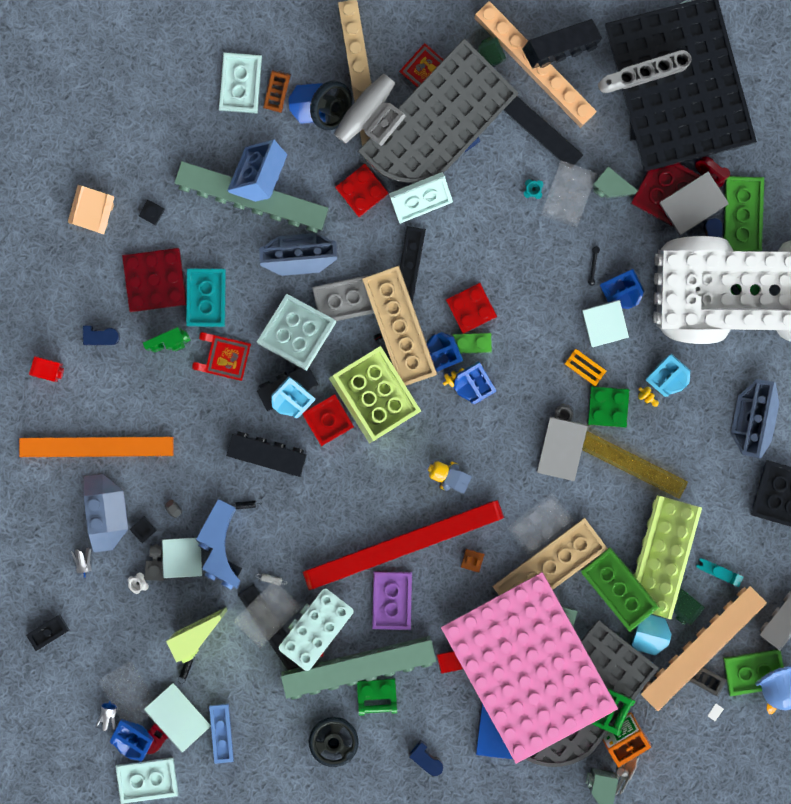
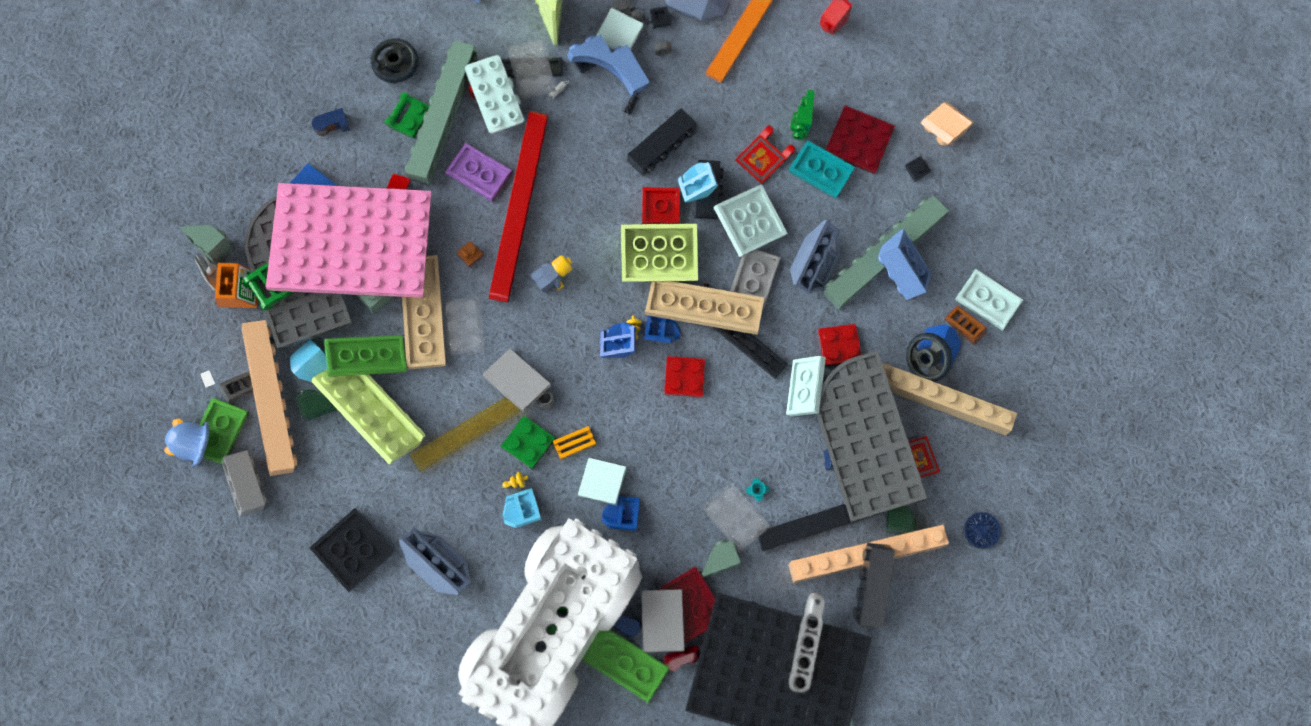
camera: 110 degrees right, 15 degrees down
(107, 337) = (837, 69): dark blue leg -> none
(371, 114) = (904, 379): light grey plate -> none
(473, 343) = (653, 360): bright green plate -> none
(595, 250) = (671, 513): black hinge -> none
(720, 572) = (323, 453): teal piece -> none

